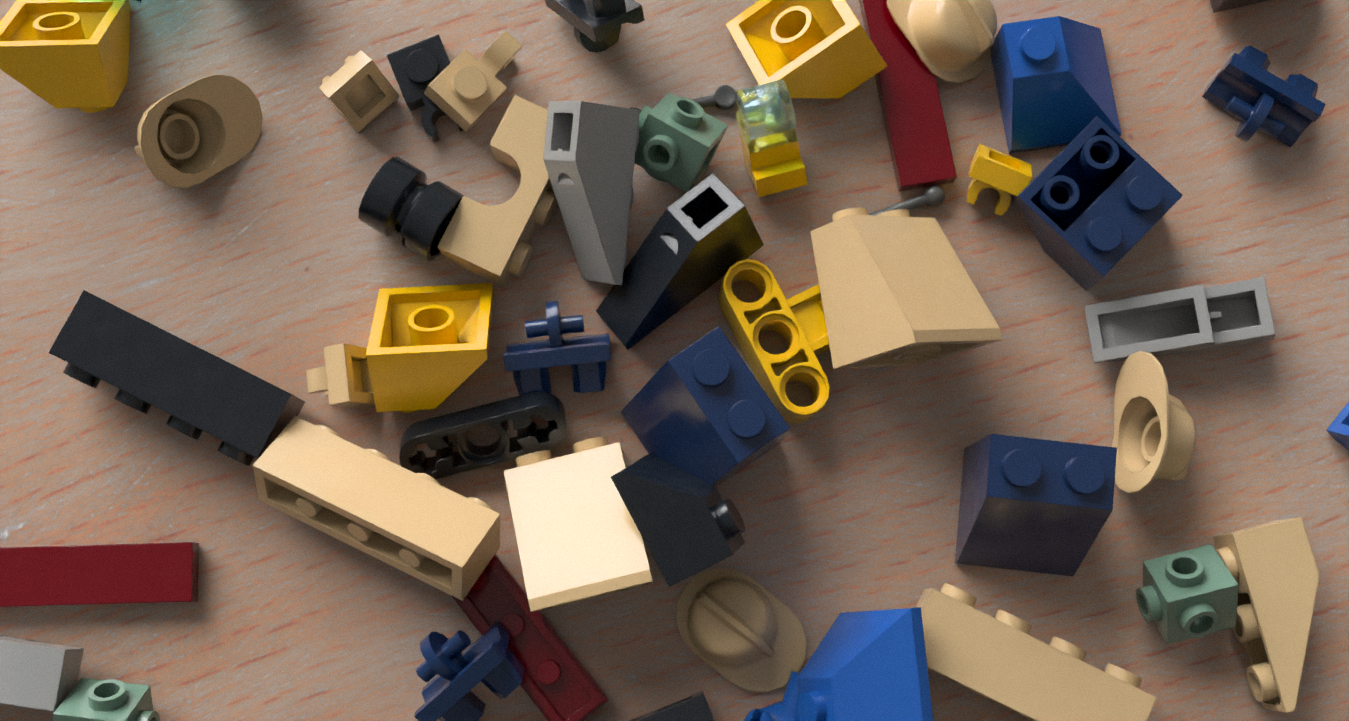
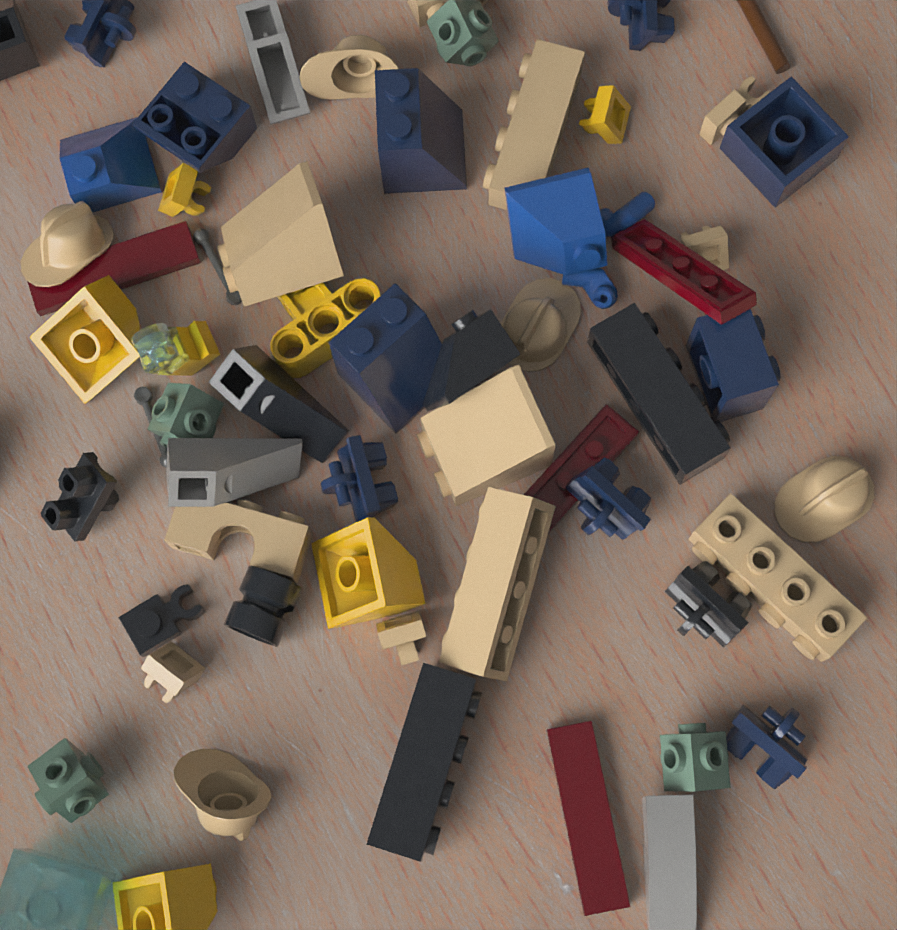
camera: 95 degrees left, 5 degrees down
(471, 85) = (156, 584): tan plate -> none
(496, 415) = (435, 506): black beam -> none

